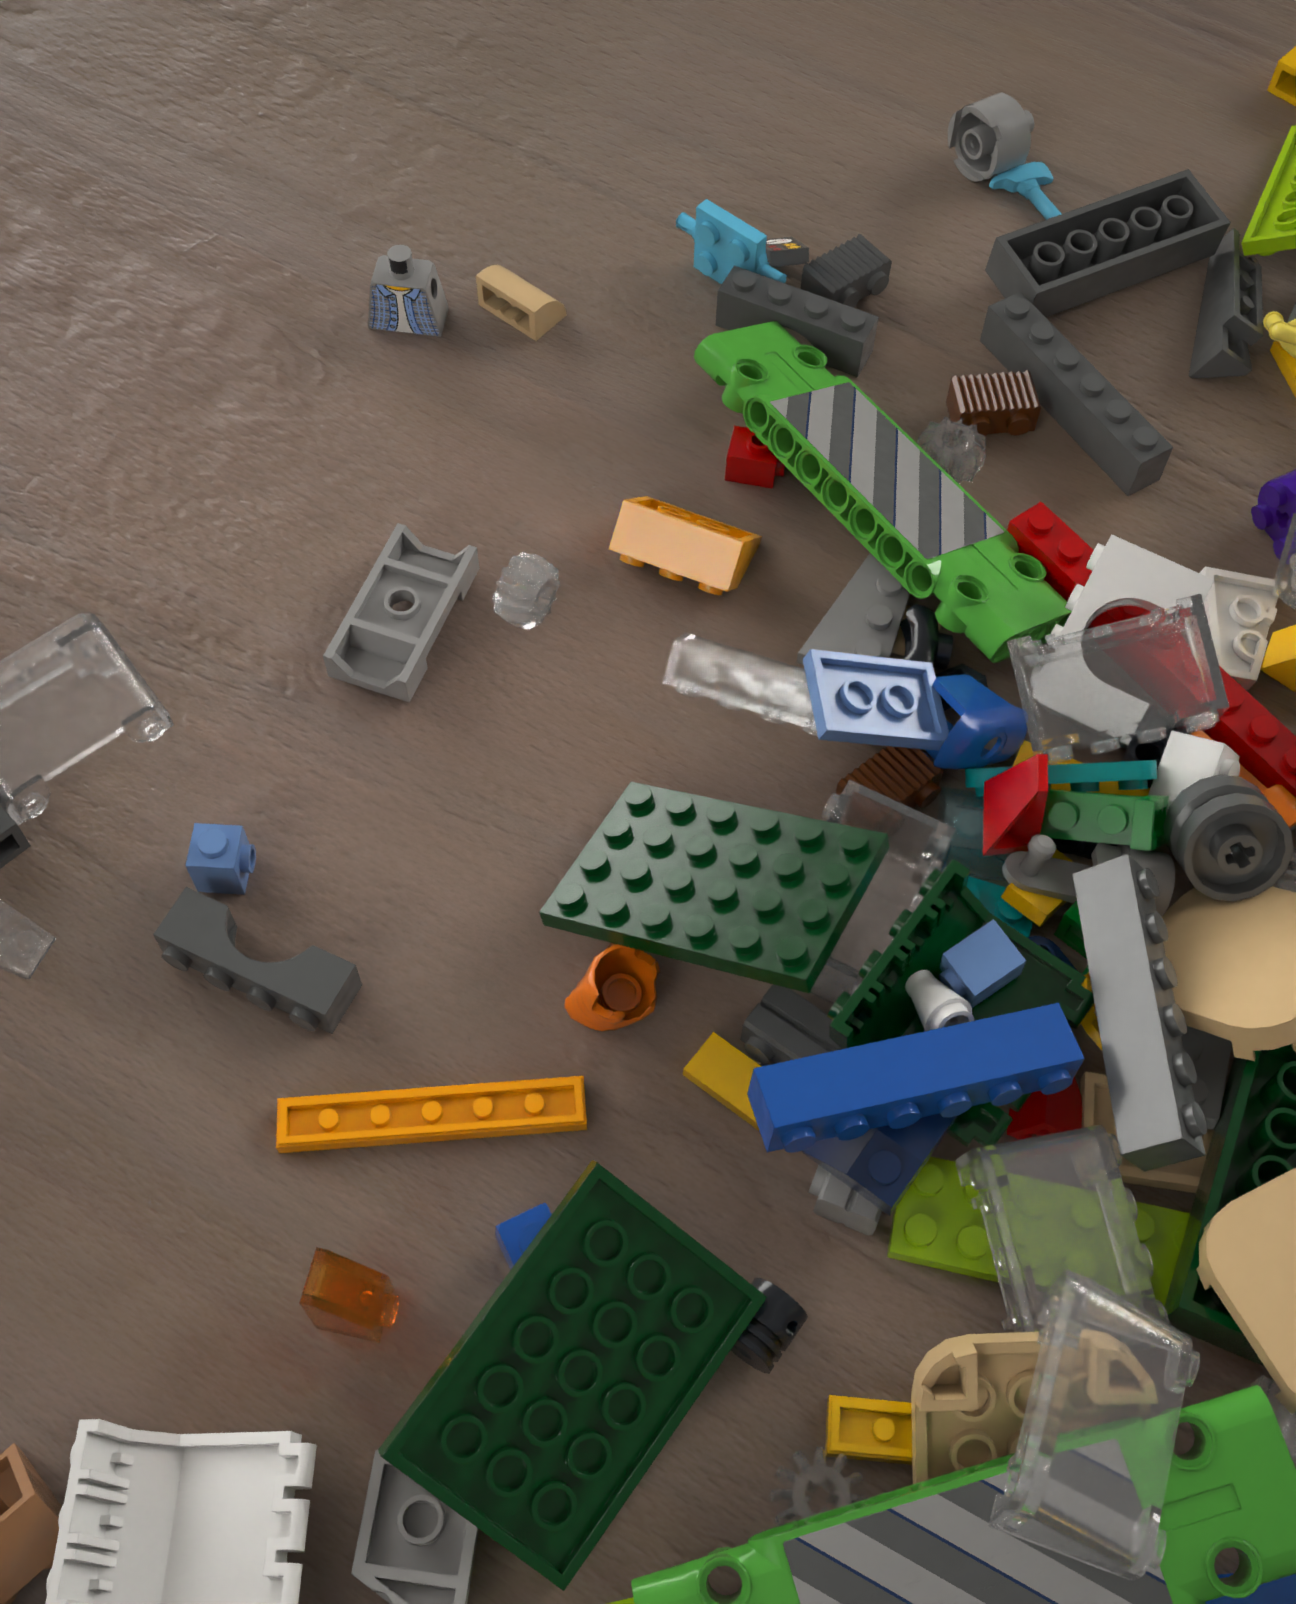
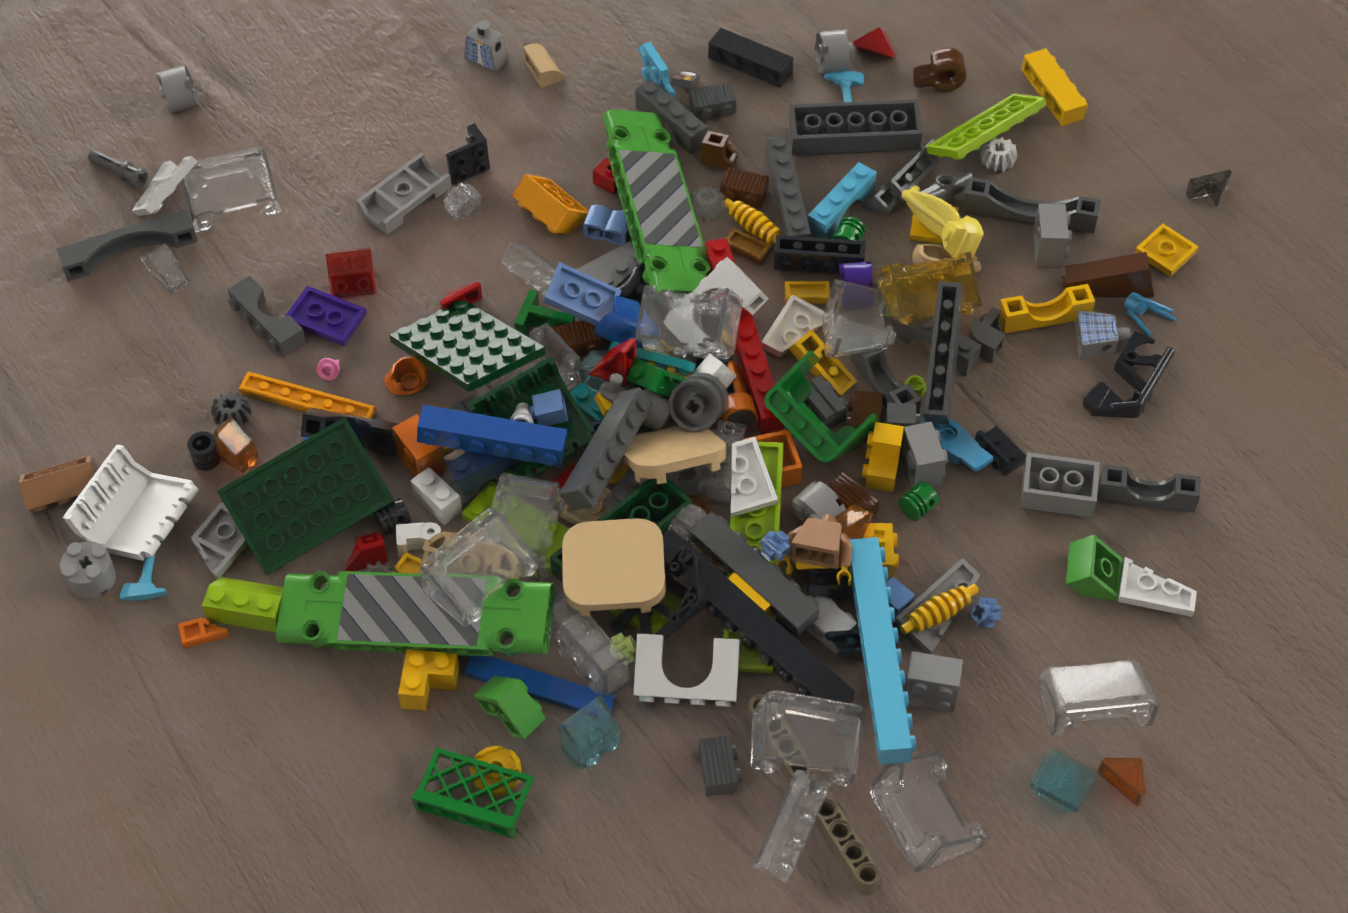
camera: 25 degrees right, 5 degrees down
(220, 858) = (270, 270): medium blue brick -> none
(276, 1333) = (204, 451): none -> black piece
(287, 1225) = (231, 406): none -> dark grey gear
(379, 913) = (326, 315): none -> dark purple plate
(384, 803) = (351, 272): none -> clear red slope
(444, 1028) = (328, 368): none -> bright pink plate
(500, 496) = (469, 159): none -> black bracket
(515, 1160) = (371, 432): none -> black arch
(618, 775) = (470, 293): none -> red slope
(728, 1152) = (414, 454): none -> orange brick
(746, 1428) = (368, 549): none -> red slope
(797, 763) = (533, 315): none -> green bracket
(807, 547) = (606, 225): none -> medium blue brick
(824, 1236) = (436, 496): none -> white brick
(844, 1341) = (414, 535): none -> white leg
(859, 186) = (750, 57): none -> black brick
(911, 356) = (717, 151): none -> reddish brown brick
(1050, 106) = (876, 42): none -> red slope
(1053, 459) = (753, 221): none -> yellow piece
(1074, 506) = (748, 246): none -> pearl gold tile
(1172, 364) = (828, 213): none -> medium azure arch
(1173, 117) = (944, 72): none -> reddish brown piece
(1199, 480) = (816, 254): none -> black brick
(1218, 431) = (850, 229): none -> green piece
(1219, 549) = (810, 291): none -> yellow tile

